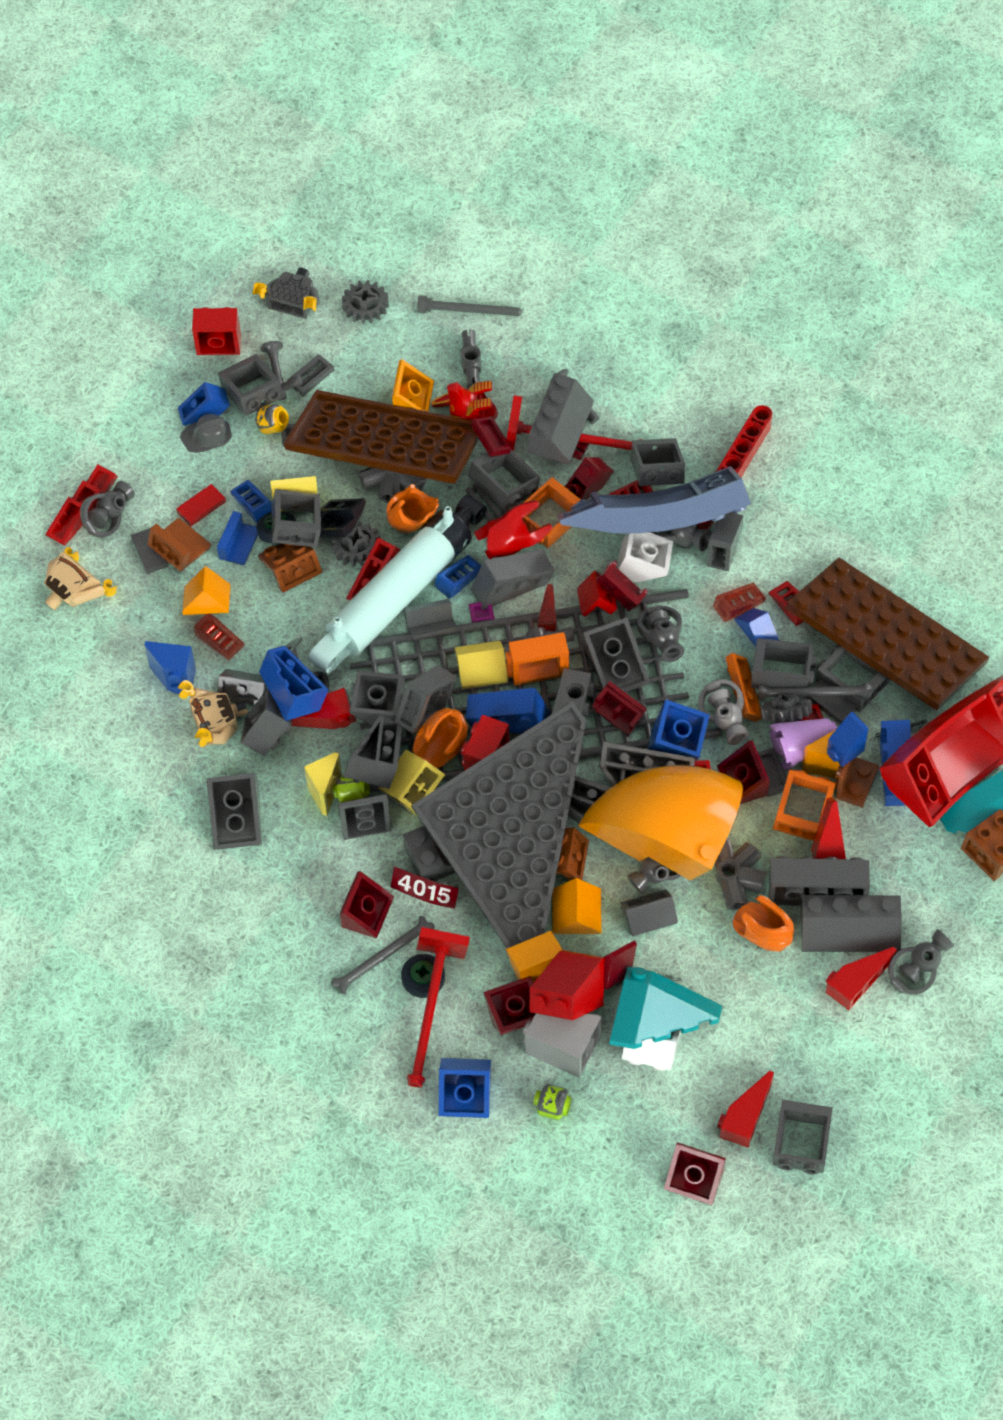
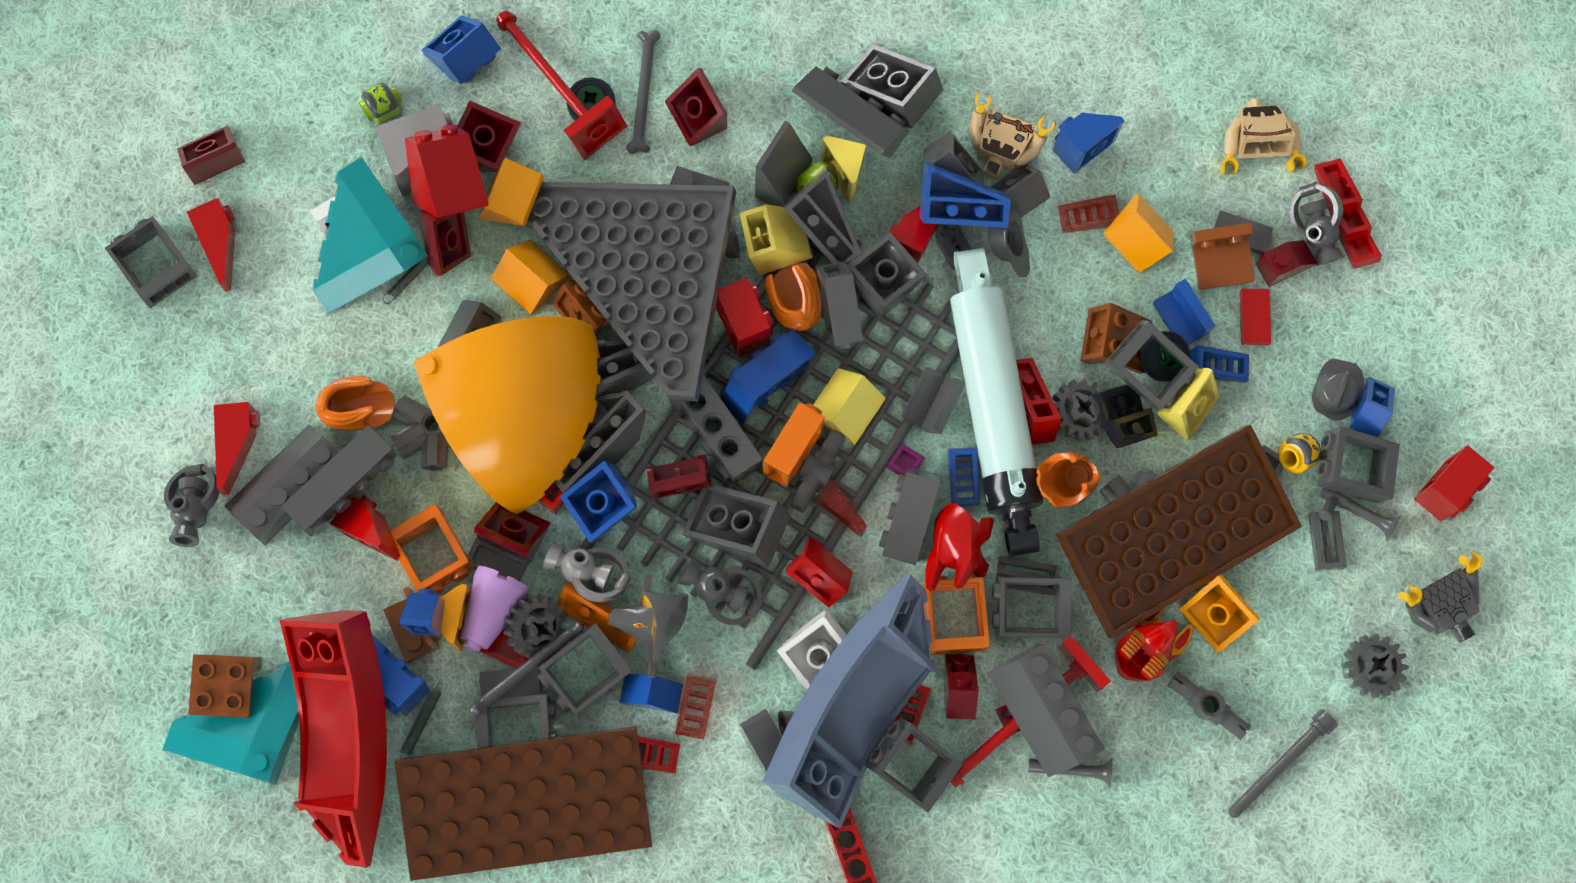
camera: 125 degrees right, 15 degrees up
(149, 510) = (1285, 261): none -> dark red slope
(282, 809) = (851, 111): none -> dark grey slope
(424, 889) = (670, 166): dark red sticker -> none
(491, 436) = (1086, 625): dark red tile -> none
(620, 586) = (804, 596): dark red hinge -> none
(719, 642) = (653, 621): none -> dark grey piece

